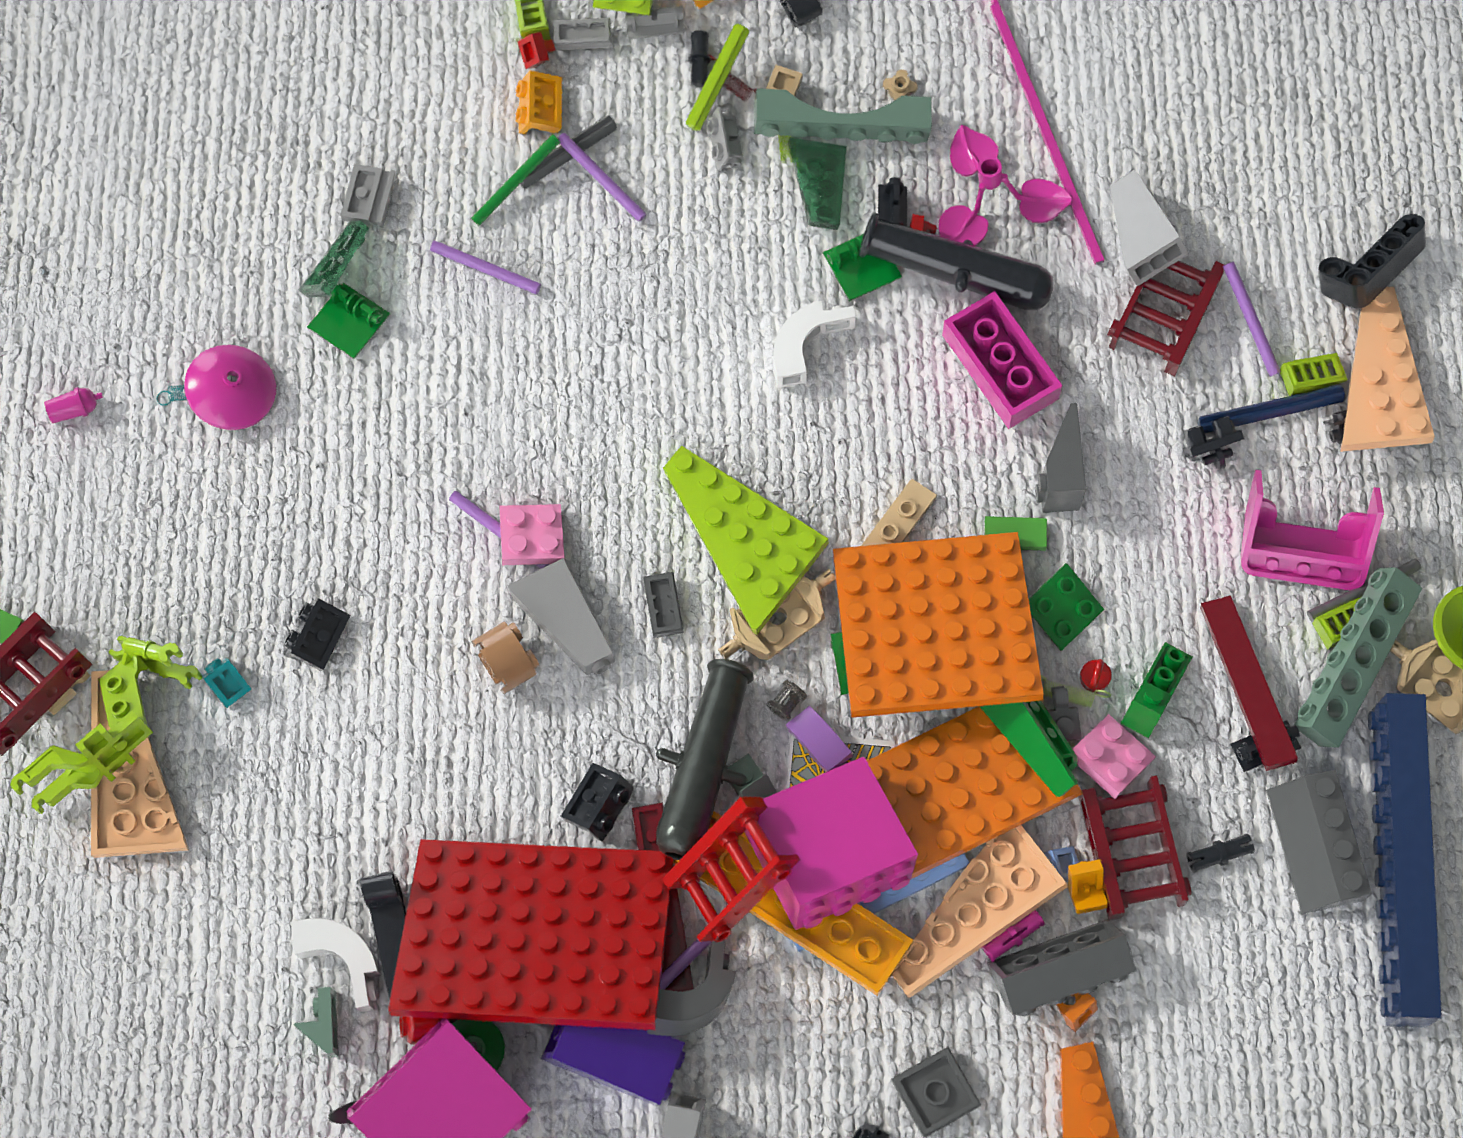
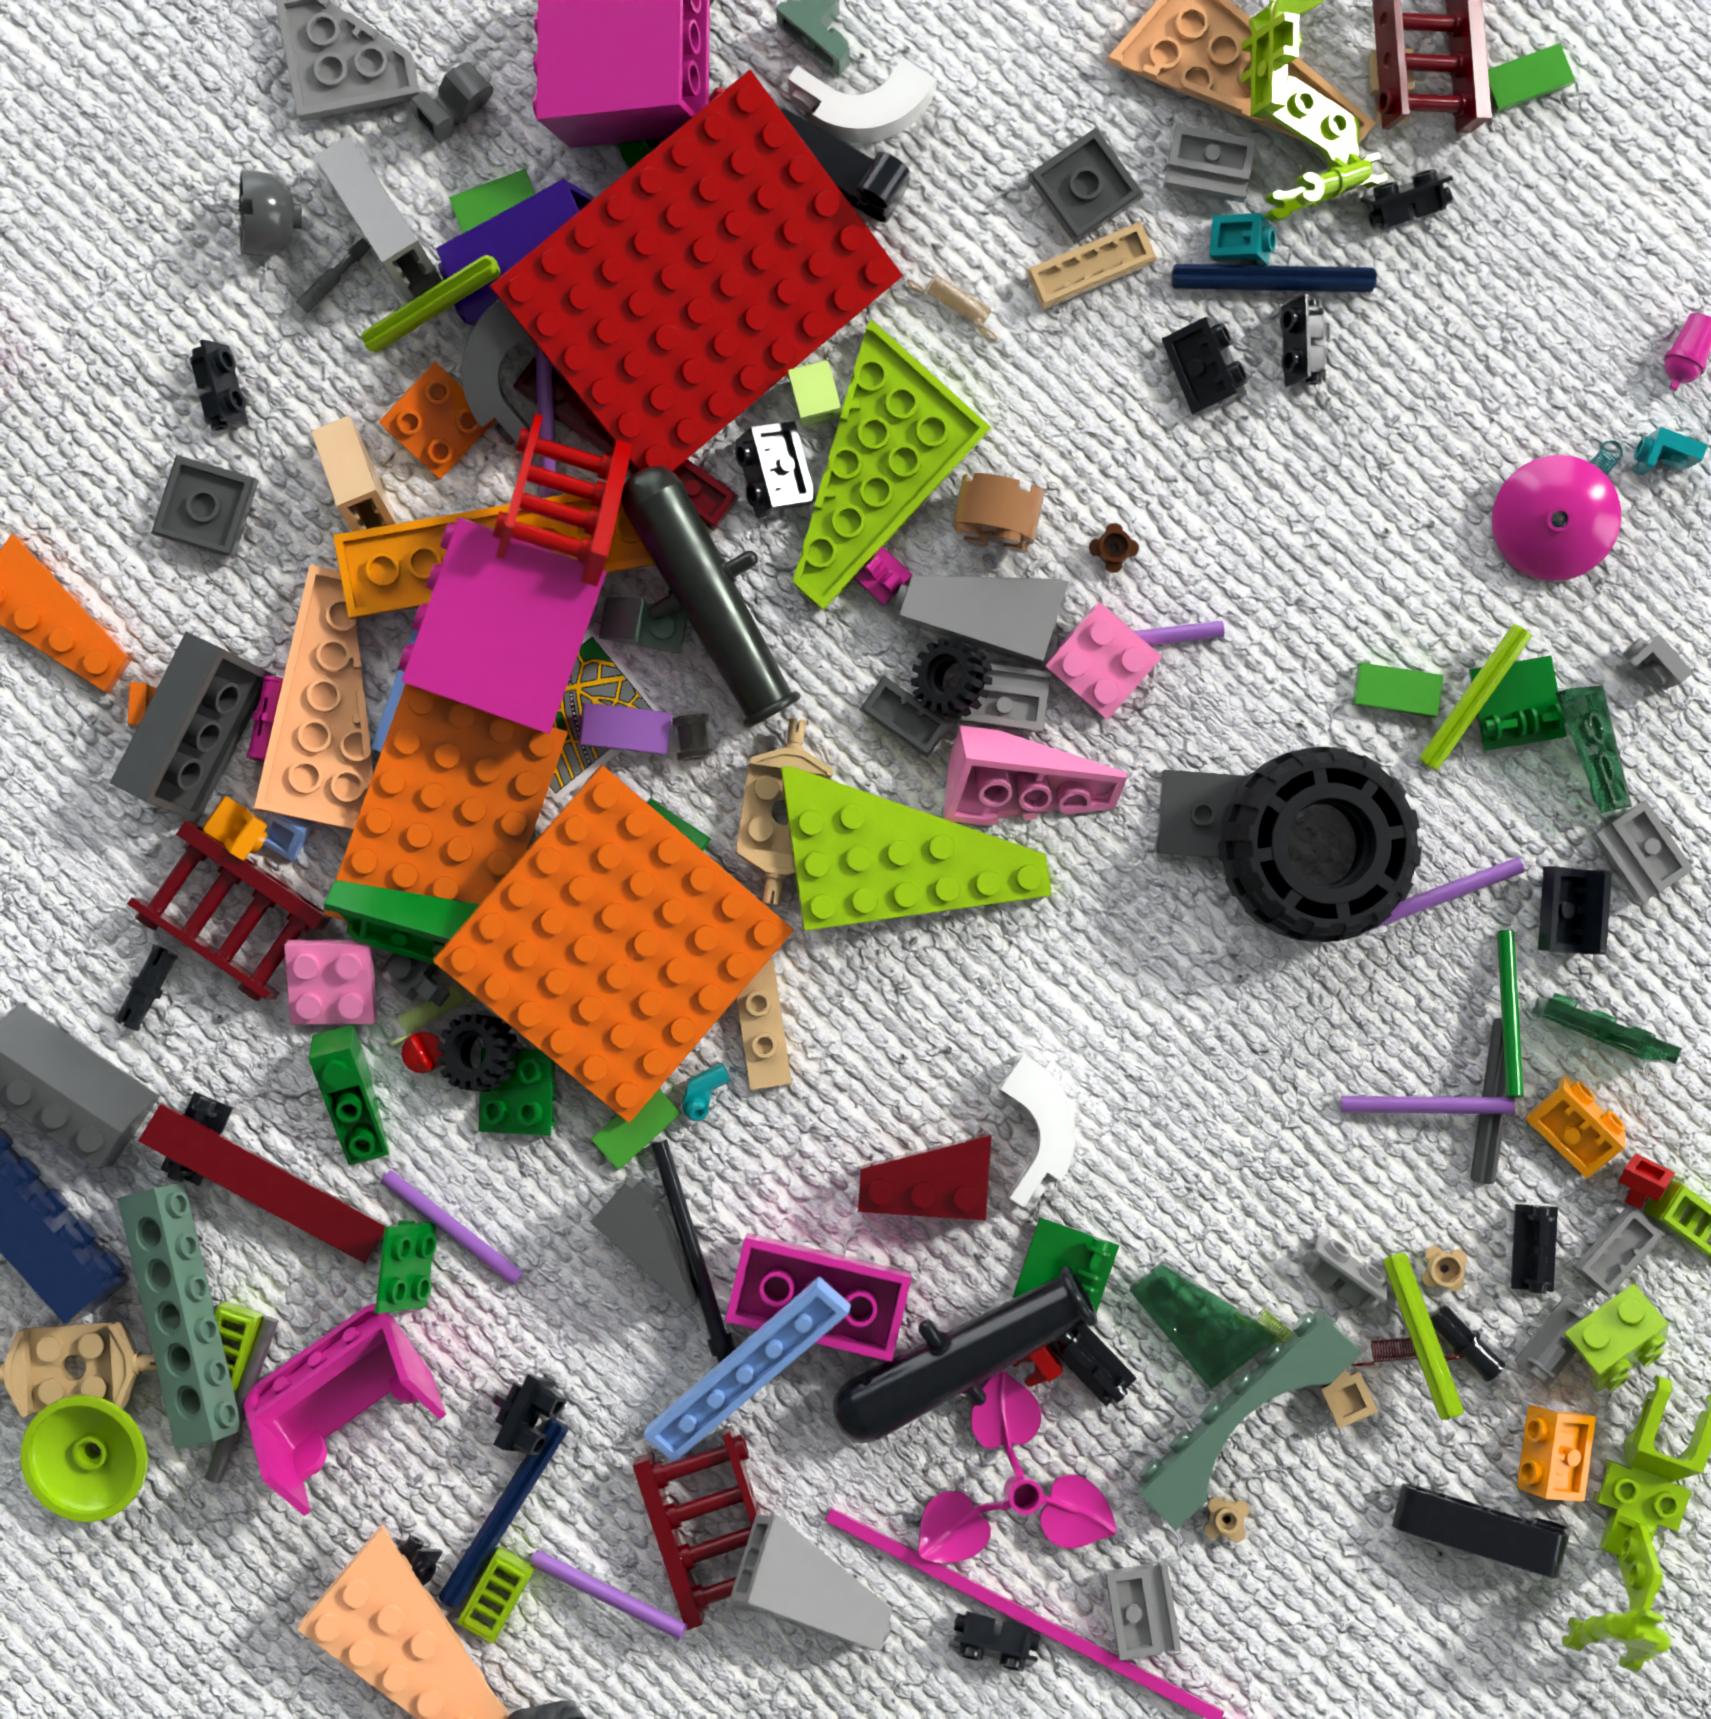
camera: 130 degrees right, 15 degrees up
(106, 614) = (1424, 193): none -> black hinge
(142, 373) = (1673, 449): none -> teal bracket
(197, 738) = (1209, 163): none -> light grey plate
(232, 647) = (1273, 278): none -> dark blue axle
(260, 274) = (1661, 661): none -> light grey bracket
(263, 591) = (1300, 324): none -> black hinge
(273, 791) = (1085, 185): none -> dark grey plate
(317, 745) = (1091, 265): none -> tan plate
(367, 339) = (1475, 697): none -> lime axle
(399, 382) = (1397, 690): none -> bright green tile
(402, 787) = (938, 292): none -> tan piece
(431, 197) = (1574, 910): none -> black bracket
(457, 582) = (1113, 535): none -> reddish brown plate
(478, 135) = (1604, 1029): none -> clear green wing
(530, 748) = (889, 455): none -> lime wing
(531, 371) = (1258, 856): none -> black tyre
(535, 818) = (814, 393): none -> yellowish green panel
(563, 415) = (1193, 811): none -> dark grey plate
(599, 690) = (883, 576): none -> dark pink tile
(599, 1108) = (490, 199): none -> bright green tile
(600, 565) = (1014, 699): none -> light grey plate
(601, 592) = (932, 672): none -> black tyre
(621, 70) = (1534, 1248): none -> black hinge
(638, 523) = (1011, 776): none -> bright pink wedge
(671, 93) = (1453, 1277): none -> tan plate
(694, 1074) = (431, 303): none -> lime axle
(757, 1012) = (434, 421): none -> orange hinge
(834, 1021) = (352, 476): none -> tan slope
(888, 363) = (930, 1182): none -> dark red wedge
(963, 520) = (699, 1091): none -> teal arm
(984, 81) = (1142, 1610): none -> light grey plate
(1065, 122) = (1010, 1648): none -> black hinge
(1074, 352) = (747, 1369): none -> light blue plate
(1074, 389) = (720, 1342): none -> black bar
(1082, 648) = (458, 1047): none -> black tyre
(1165, 573) = (451, 1227): none -> medium lavender bar
(1214, 567) = (405, 1266): none -> green hinge

